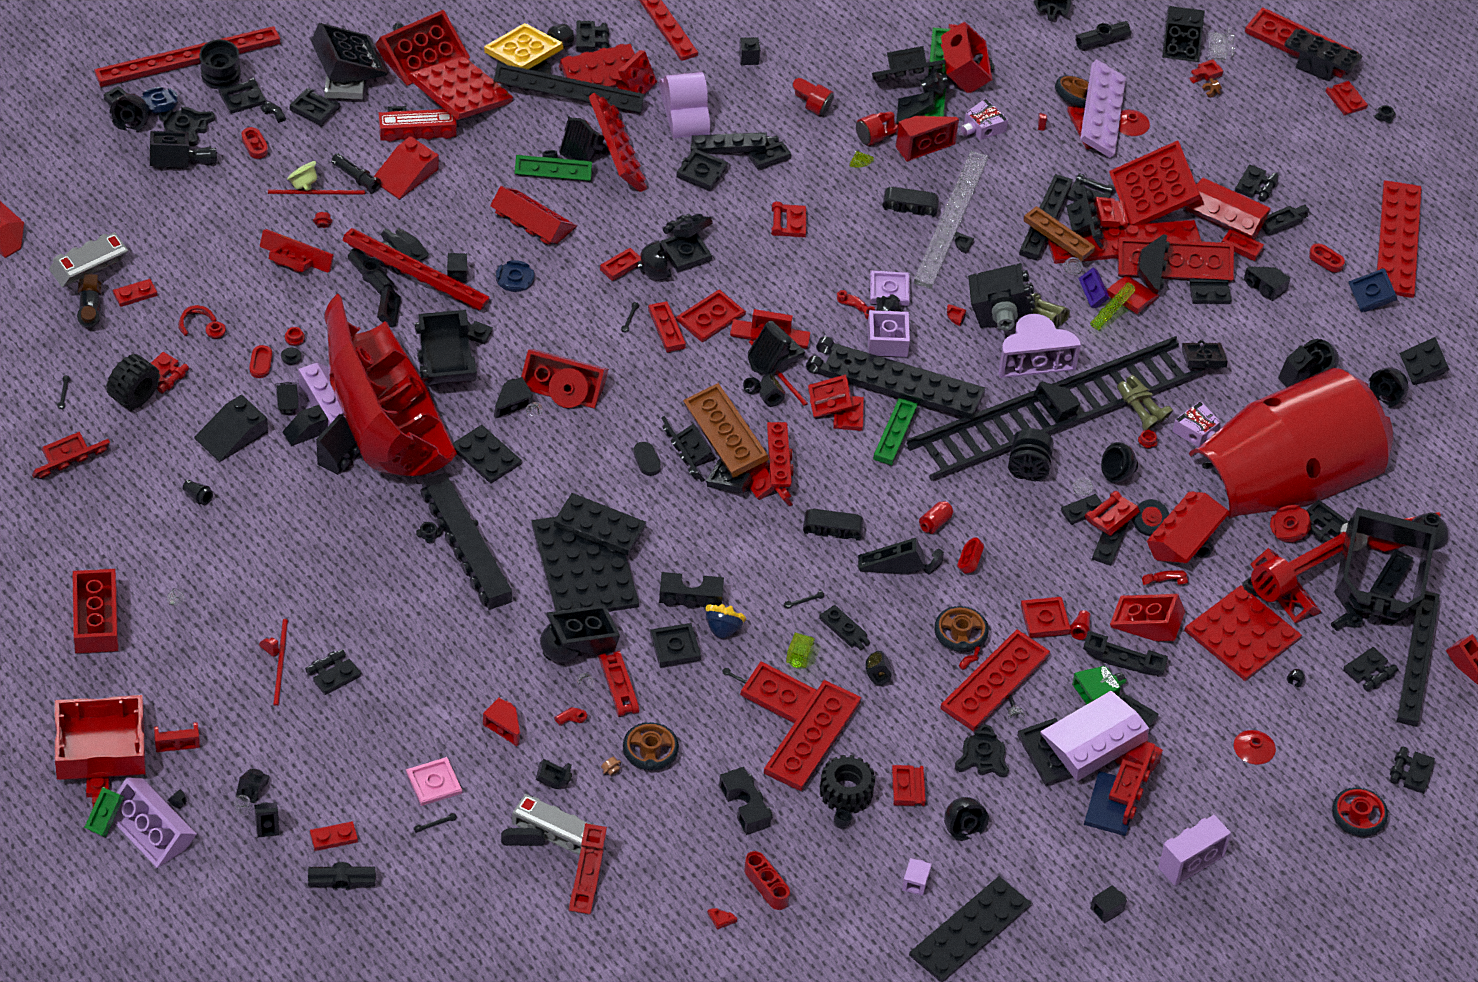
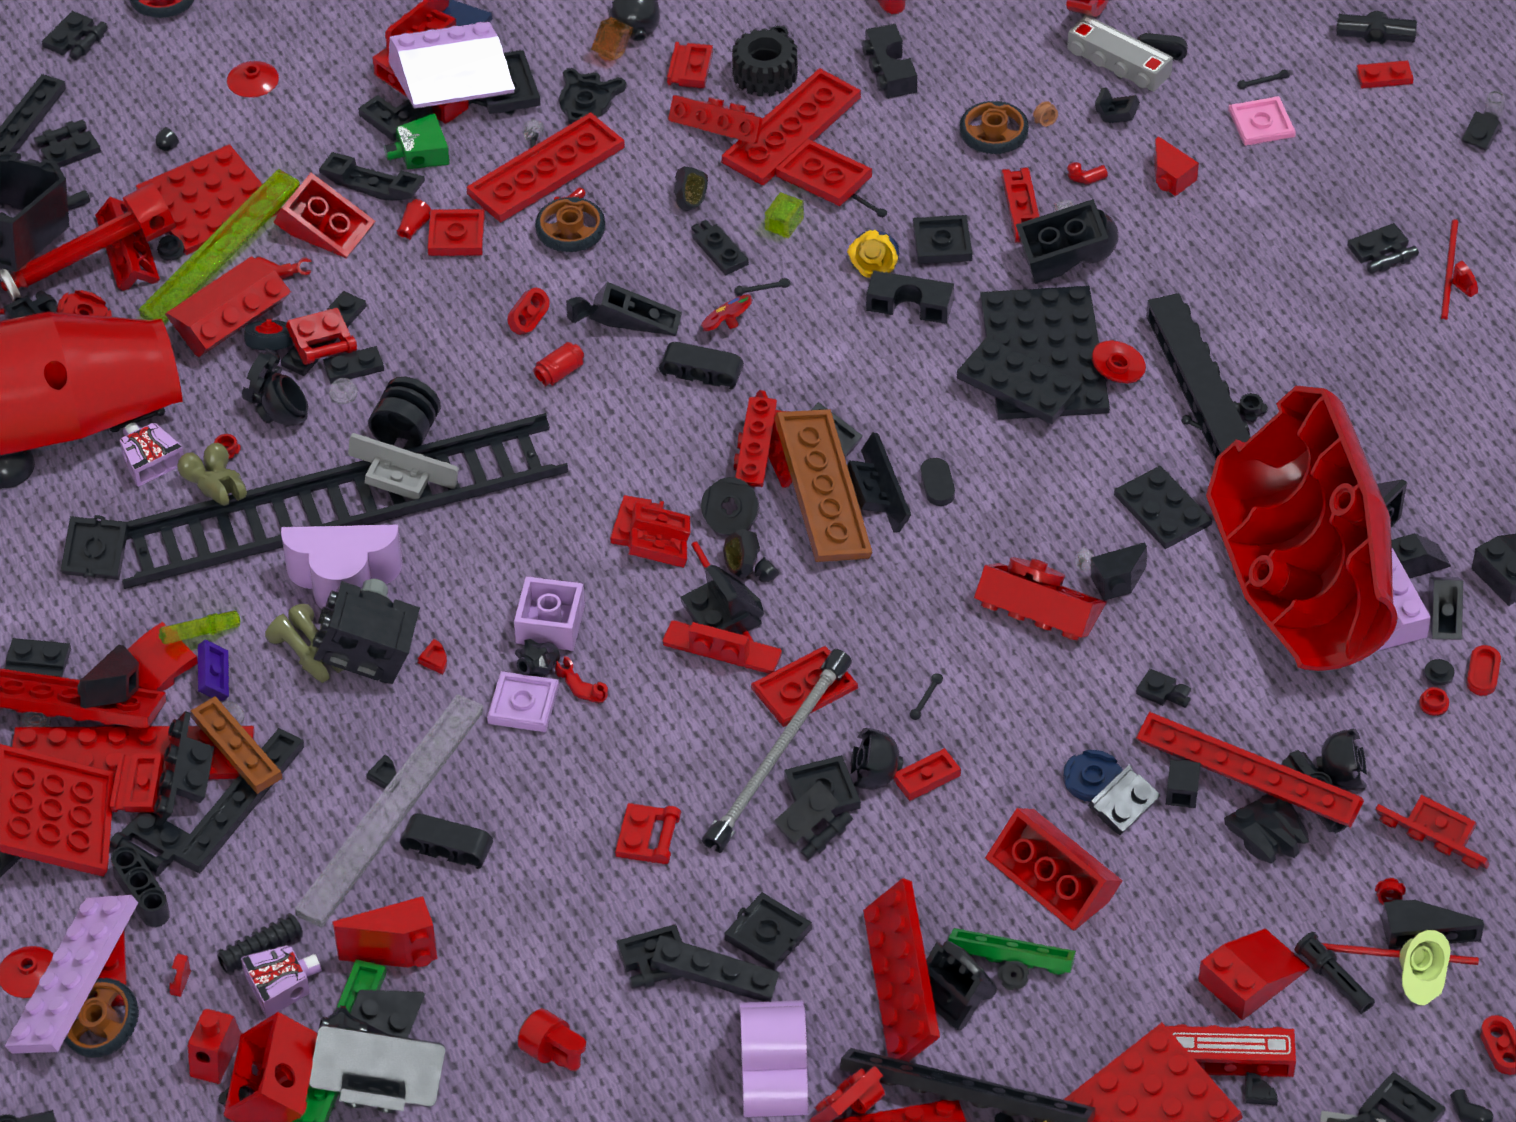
camera: 165 degrees left, 0 degrees up
(266, 819) = (1466, 78): black slope -> none
(300, 199) = (1407, 918): none -> black slope
(355, 283) = (1341, 758): none -> black cylinder
(389, 306) = (1291, 729): black plate -> none
(445, 348) = (1210, 616): black cylinder -> none
(493, 258) = (1124, 800): none -> plate
(527, 544) = (1118, 361): none -> red dish
(666, 326) = (875, 667): red plate -> none
(693, 313) = (721, 831): none -> light grey hose
(787, 415) = (720, 493): none -> black plate
(820, 569) = (727, 312): none -> red piece
(860, 160) = (503, 935): clear neon green tile -> none
(870, 732) = (716, 117): none -> red bracket
(871, 128) = (470, 973): red piece -> none
(895, 431) = (579, 485): green plate -> none
(897, 379) = (556, 552): black hinge -> none
(978, 790) = (611, 39): none -> clear orange brick
(1002, 139) = (267, 939): none -> black piece
(1007, 73) = (215, 1037): none -> red torso
(1019, 418) = (400, 469): none -> light grey bracket
(1057, 401) = (336, 488): black slope -> none
(1084, 161) = (139, 882): none -> black beam
(1140, 472) = (260, 371): none -> black plate
(1213, 579) = (221, 245): none -> clear neon green plate

